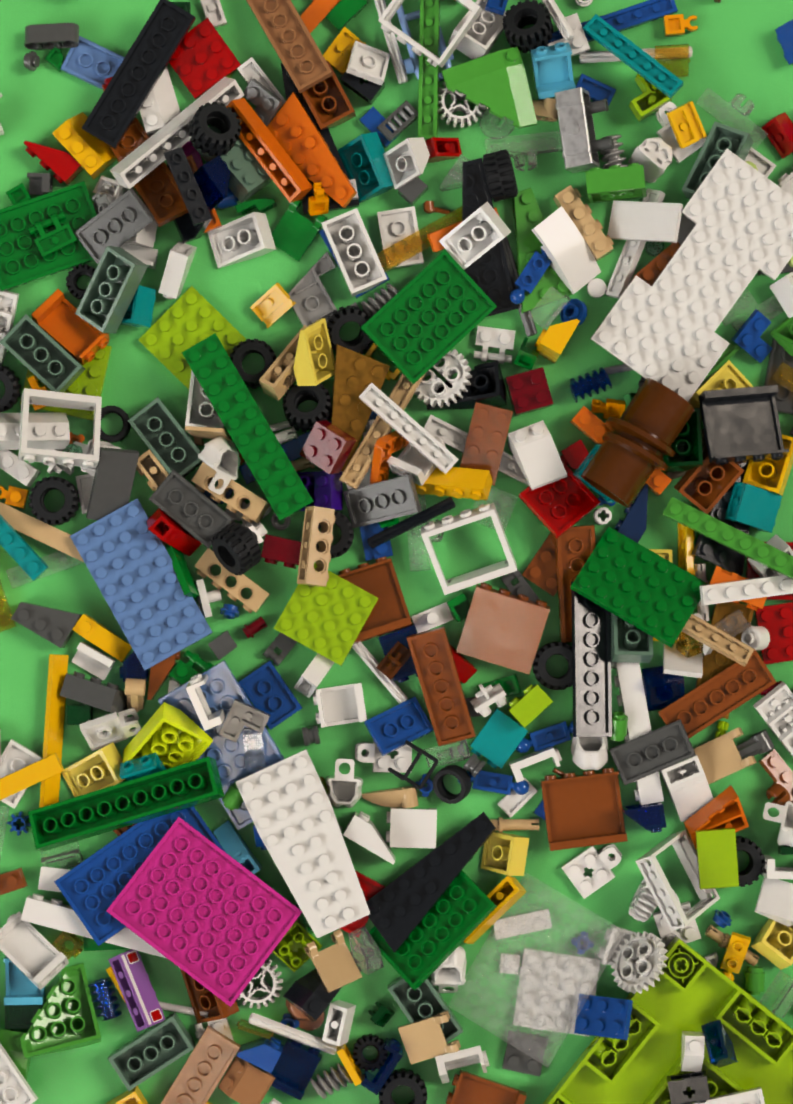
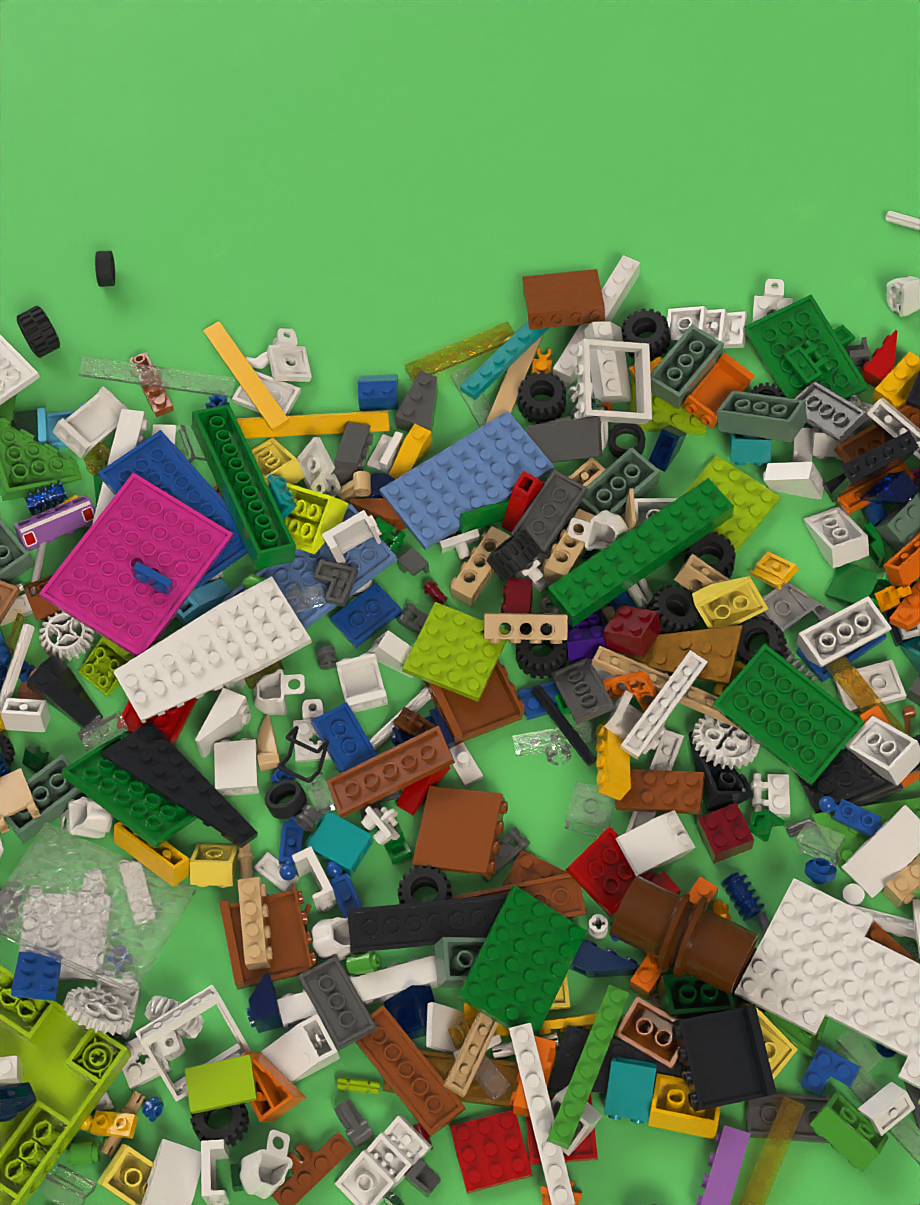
camera: 85 degrees right, 25 degrees down
(21, 662) = (378, 392): none -> blue slope
(79, 714) = (330, 441): dark green panel -> none
(124, 386) = (667, 447): none -> clear blue slope
(229, 611) = (449, 567): blue plate -> none
(231, 890) = (156, 580): none -> blue plate
(334, 963) = (87, 701): tan flag -> none
(459, 607) = (479, 783): green panel -> none
(477, 576) = (576, 803): white window -> none
(529, 705) = (377, 865): lime brick -> none
(553, 341) = (787, 844): yellow slope -> none
(577, 820) = (254, 925): none -> tan brick
(599, 862) = (209, 967): white plate -> none
(721, 756) = (338, 1084): tan flag -> none
(757, 637) = (478, 1106): white head -> none

